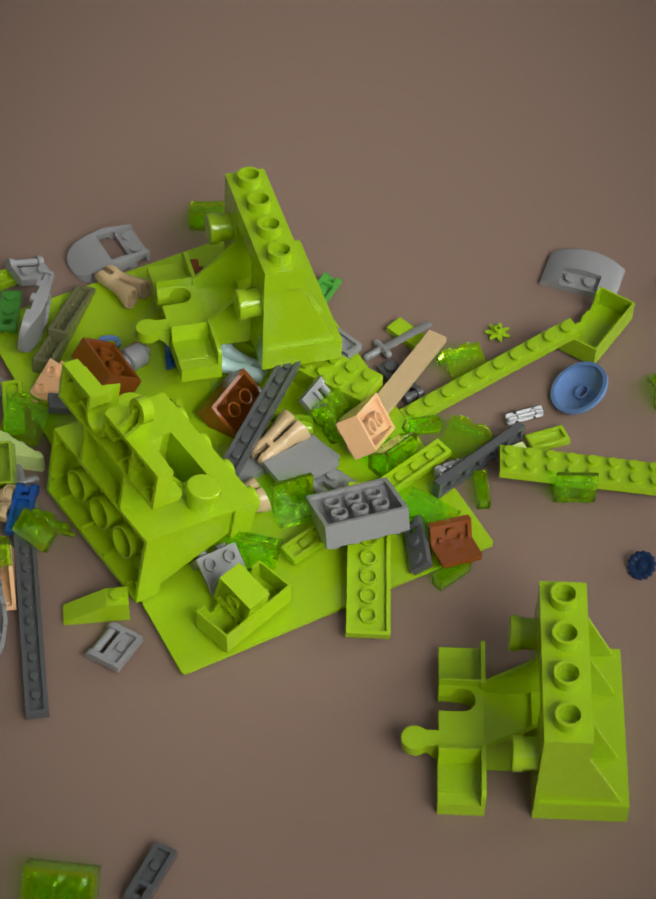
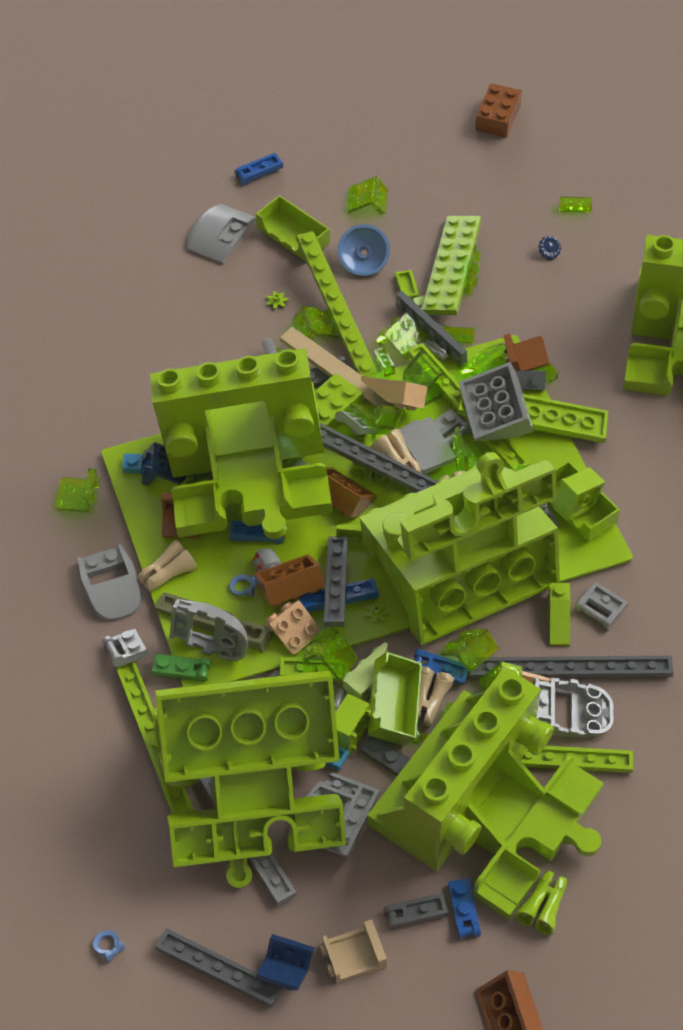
camera: 80 degrees left, 5 degrees up
(523, 414) = (378, 295): light grey axle -> none

